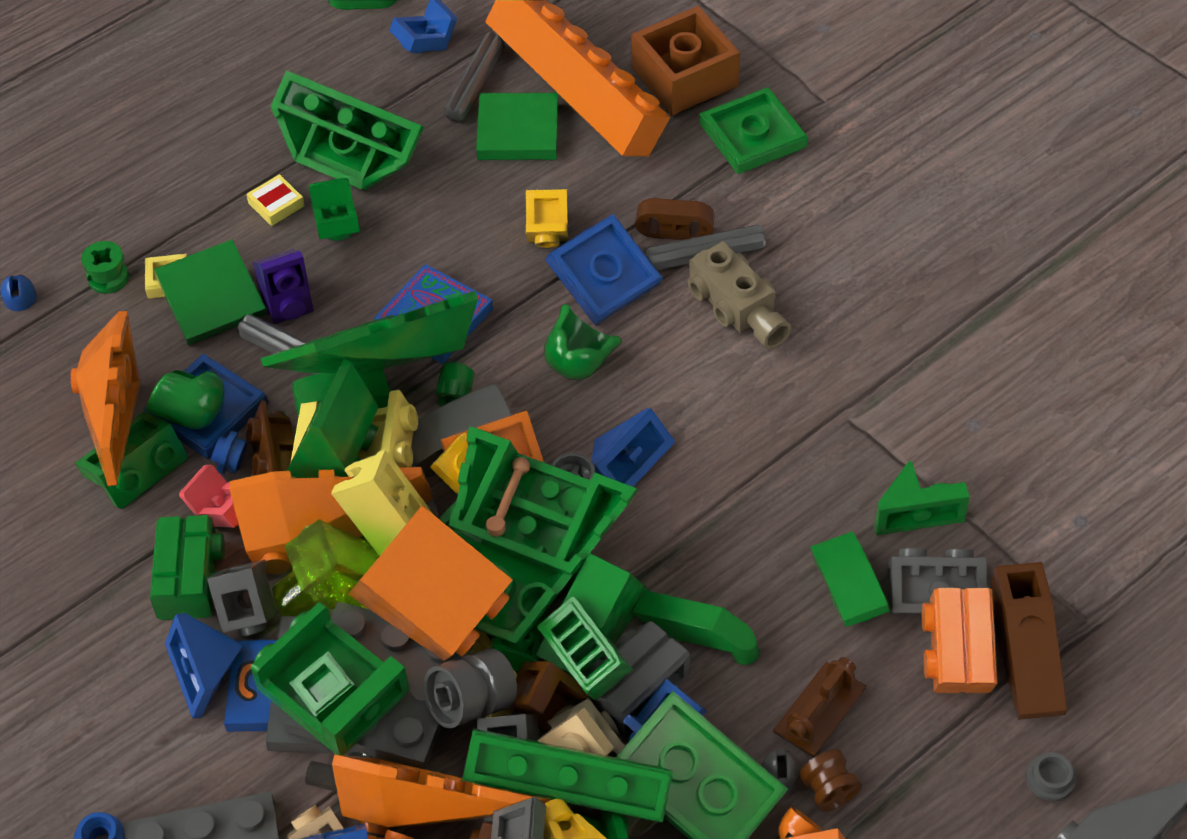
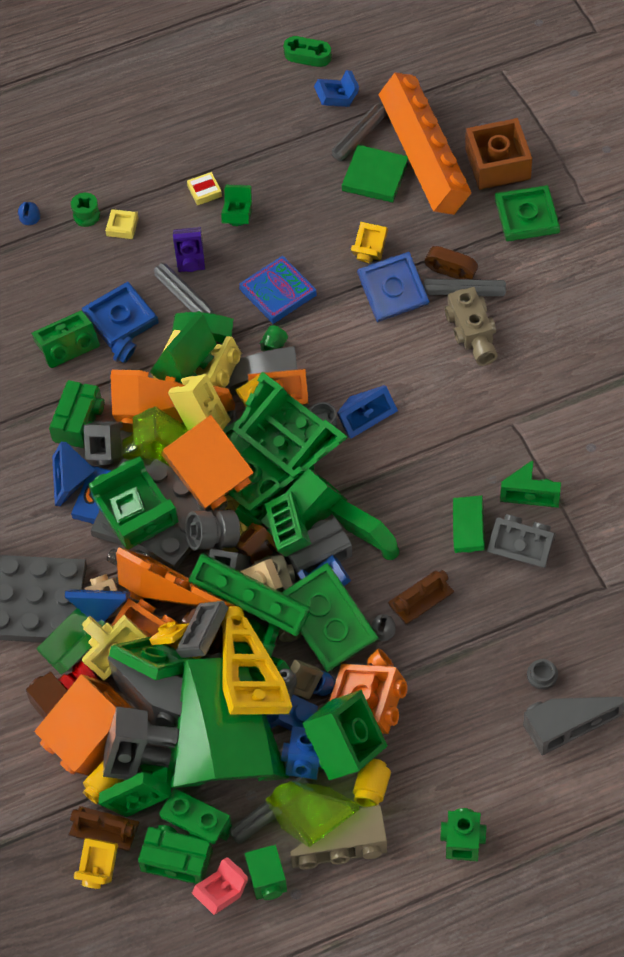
camera: 20 degrees right, 5 degrees up
(109, 391) = (63, 291): orange wedge -> none
(187, 398) = (107, 309): green hair -> none
(209, 291) = (143, 241): green tile -> none
(210, 495) = (100, 373): coral bracket -> none
(268, 436) = (151, 344): reddish brown hinge -> none
(342, 133) = (258, 153): green wedge -> none
(386, 340) = (232, 302): green wedge -> none
(496, 524) = (258, 436): nougat hinge -> none
(575, 347) = (357, 333): green hair -> none
(830, 780) = (408, 640): reddish brown wheel -> none
(961, 640) = (518, 579): orange brick -> none
(1028, 639) = (560, 589): reddish brown slope -> none

